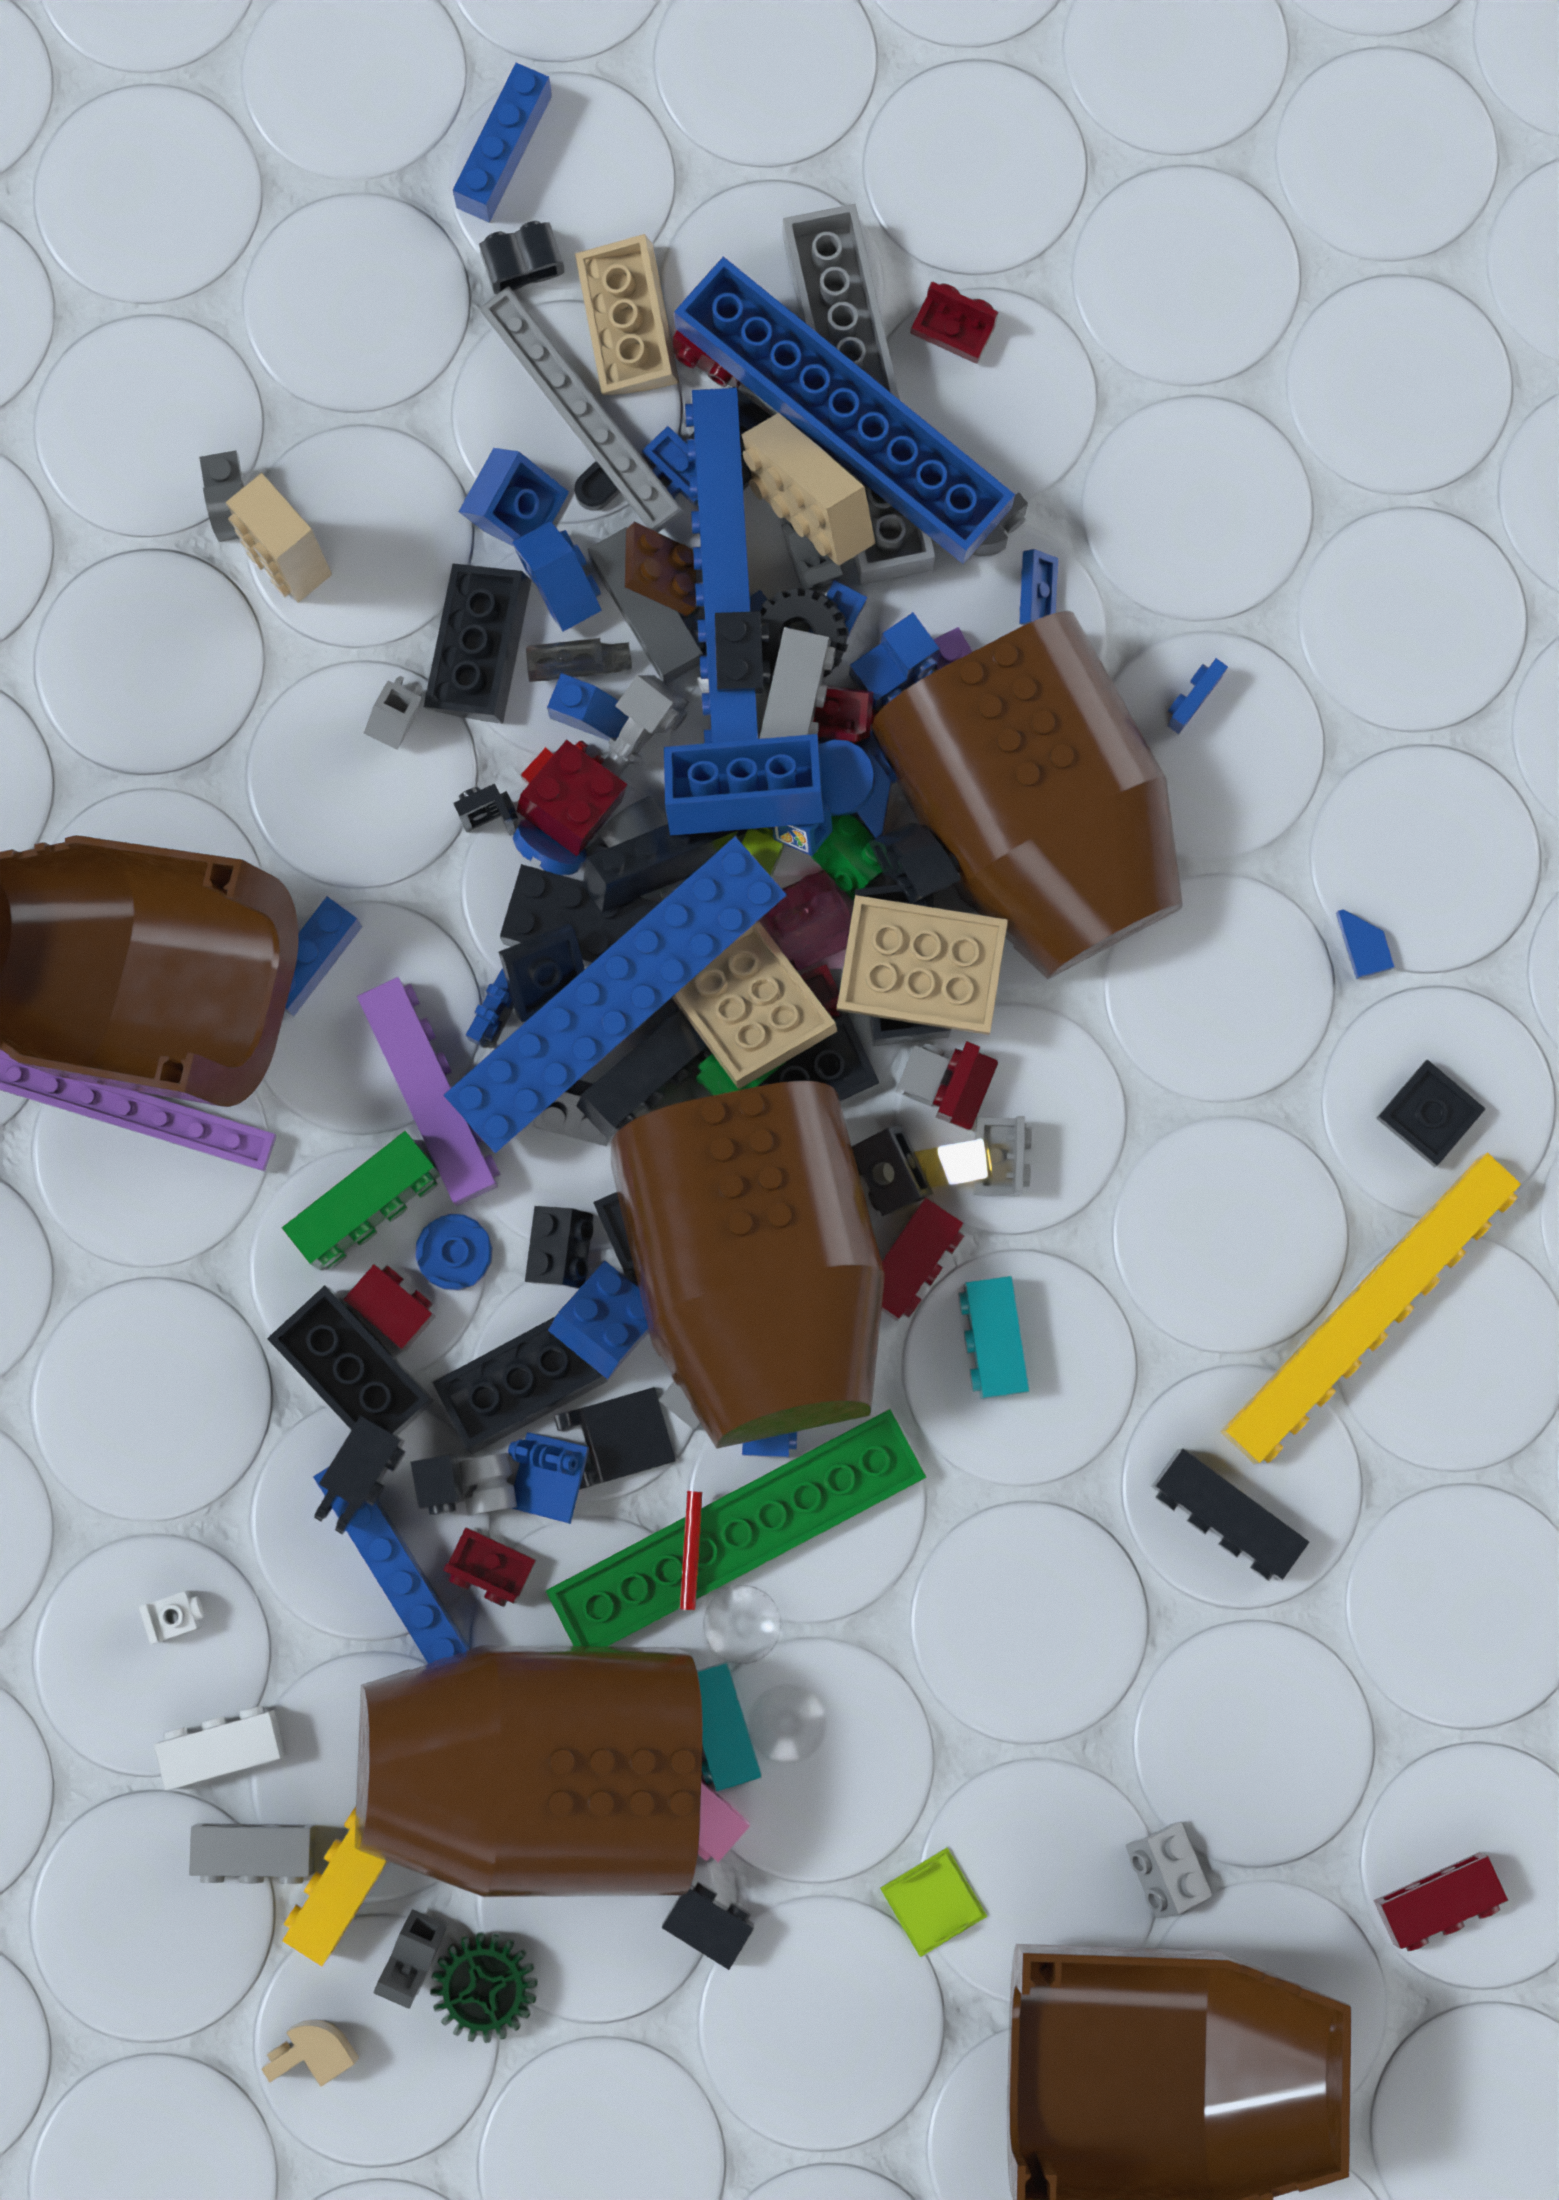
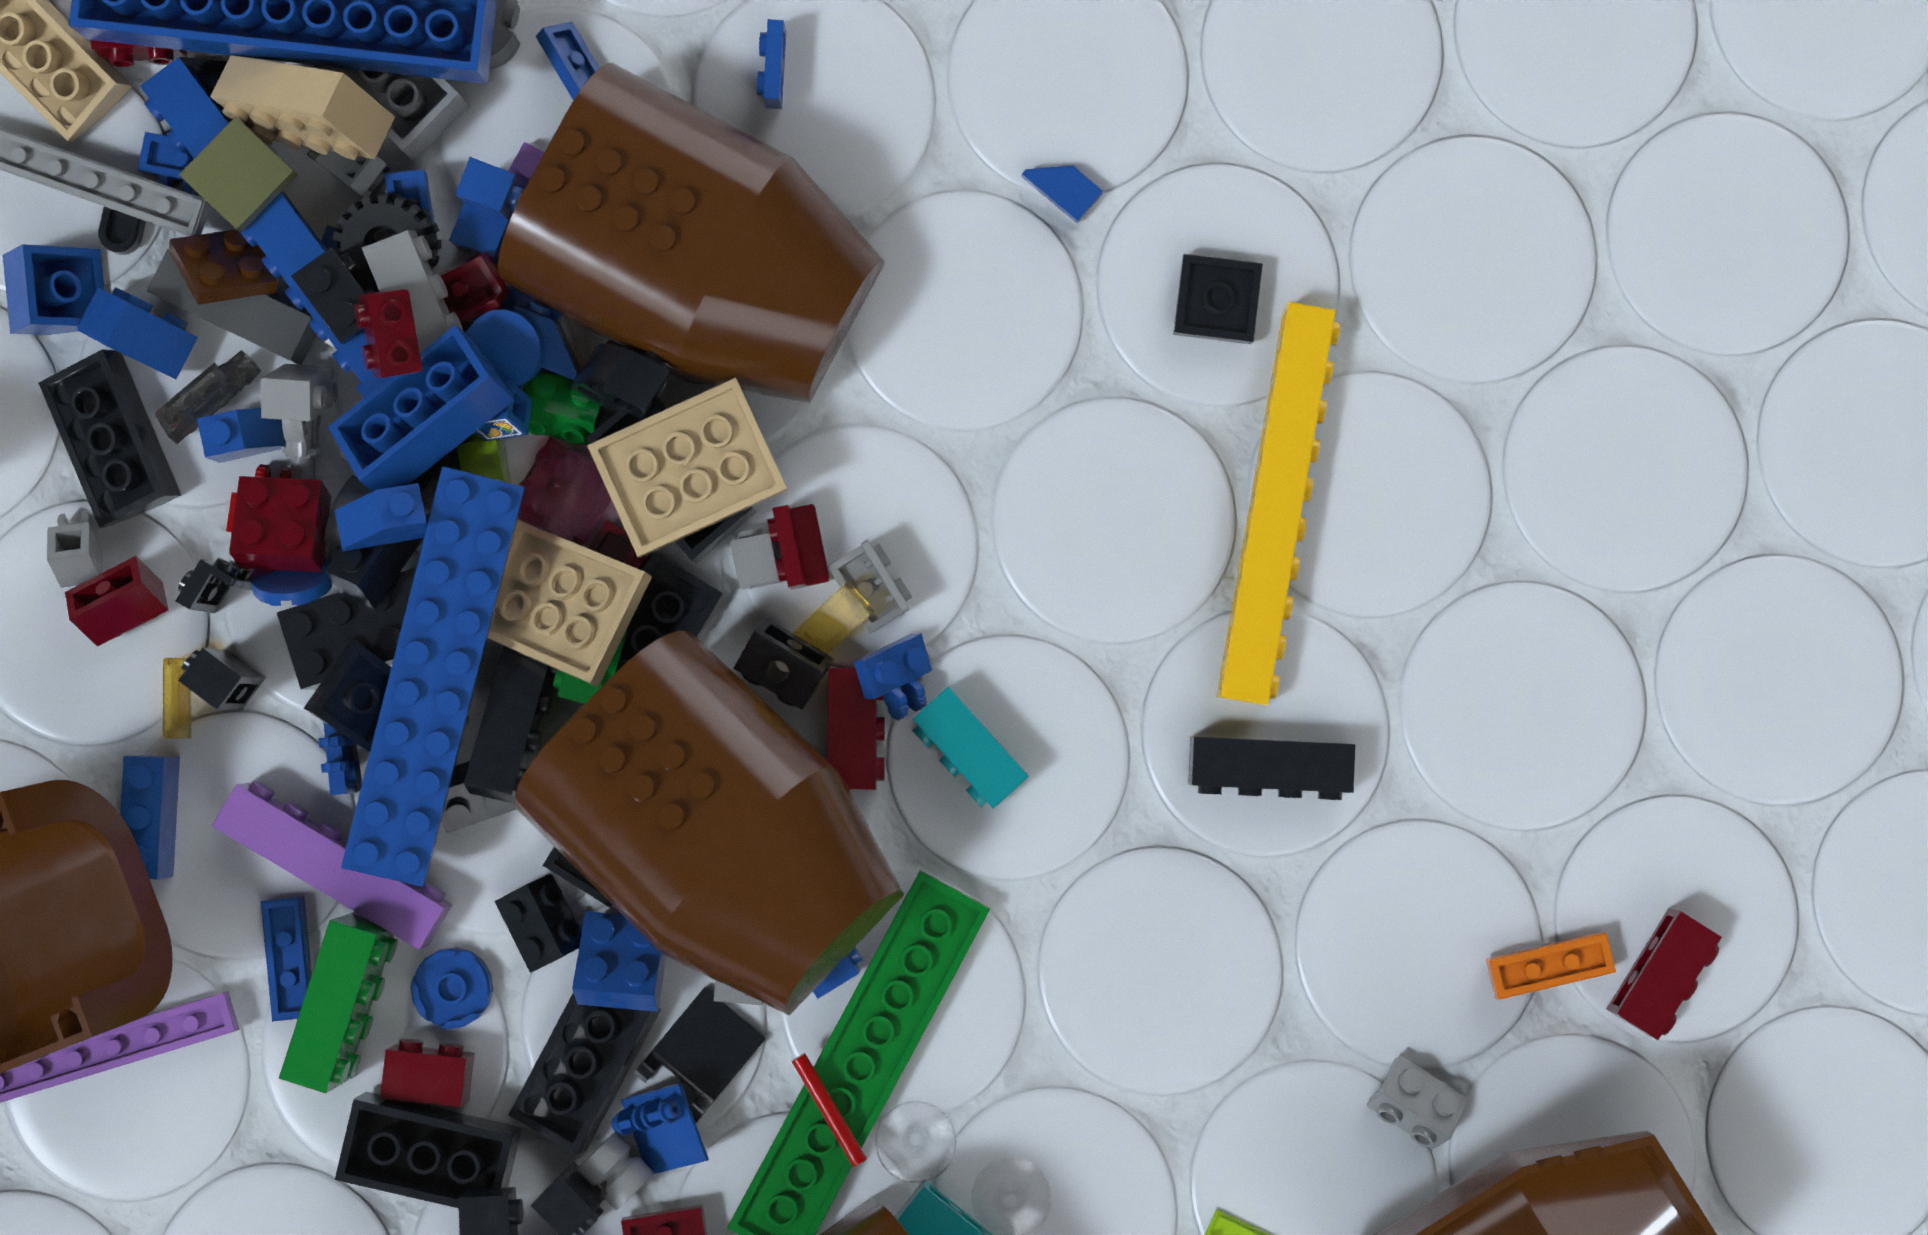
camera: 30 degrees left, 5 degrees up
(341, 1140) = (286, 955): none -> blue tile
(394, 879) = (175, 701): none -> clear yellow tile
(400, 775) = (116, 601): none -> dark red brick
(442, 886) = (220, 678): none -> black brick
(661, 845) = (382, 518): none -> blue slope
(723, 508) = (238, 174): none -> olive tile
(762, 706) = (389, 332): none -> dark red bracket
(975, 1231) = (895, 667): none -> blue hinge
(1351, 1831) = (1550, 965): none -> orange plate

